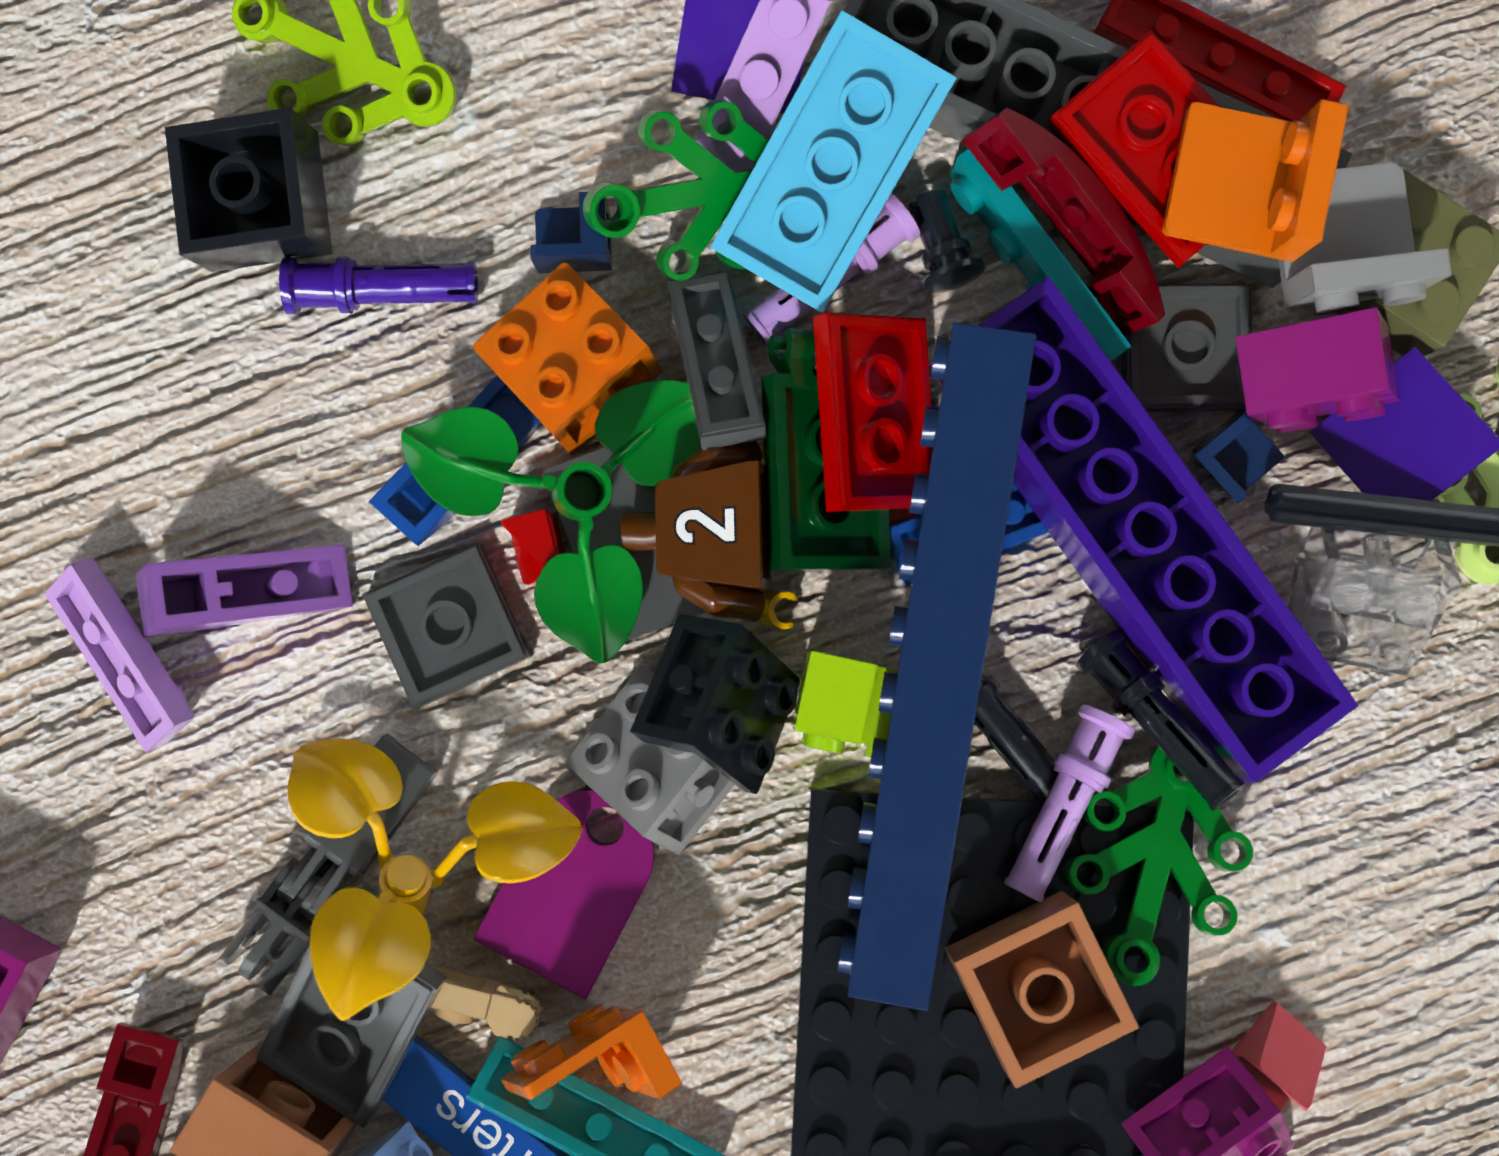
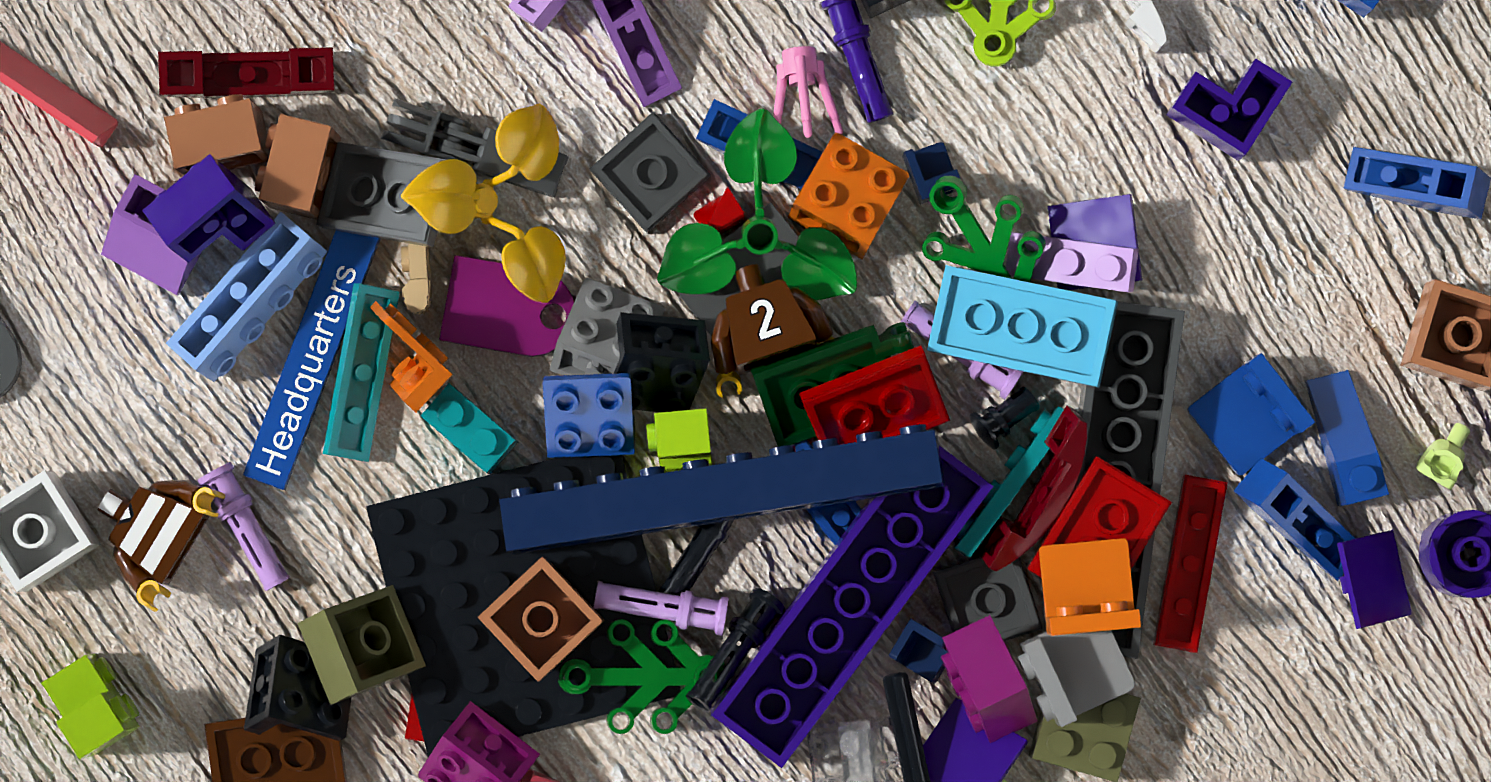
camera: 70 degrees right, 0 degrees up
(373, 369) = (801, 68): none -> bright pink plant
(716, 361) = (877, 292): dark grey tile -> none
(726, 999) = (469, 429): none -> teal brick
(764, 824) = (589, 415): none -> blue bracket

